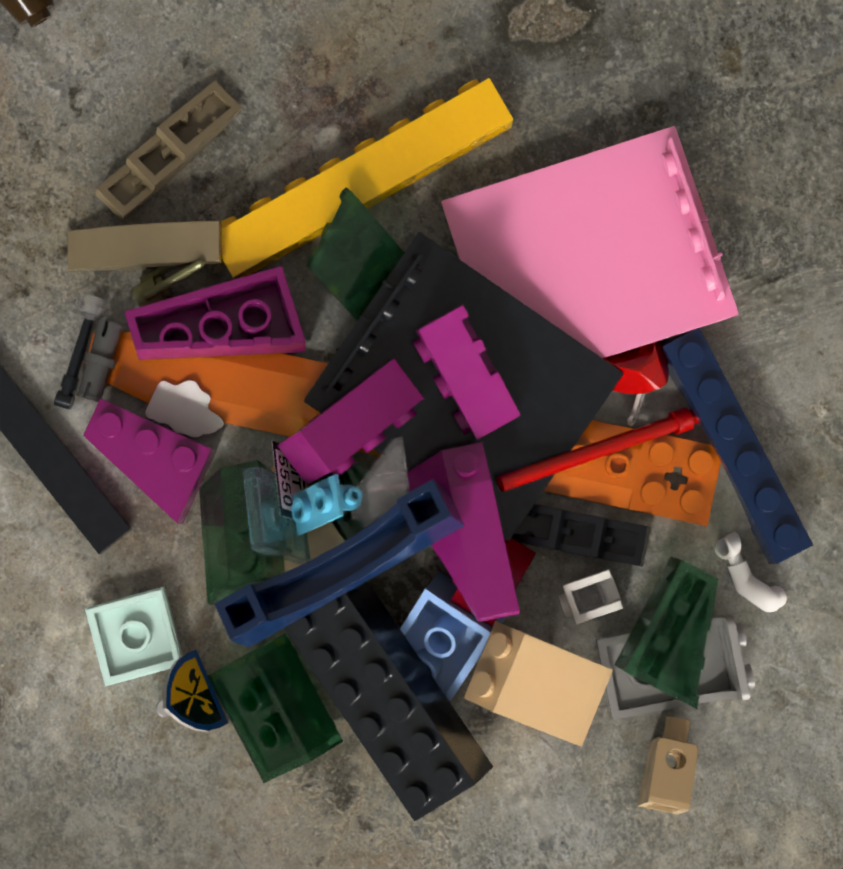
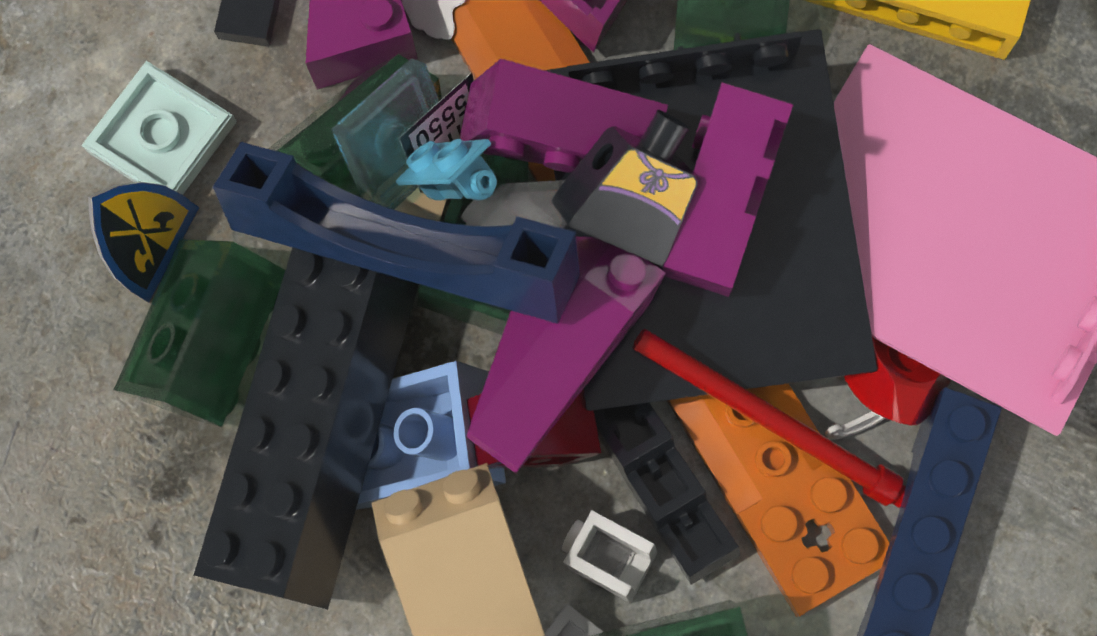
camera: 50 degrees right, 10 degrees down
(426, 423) = (631, 189): none -> black torso

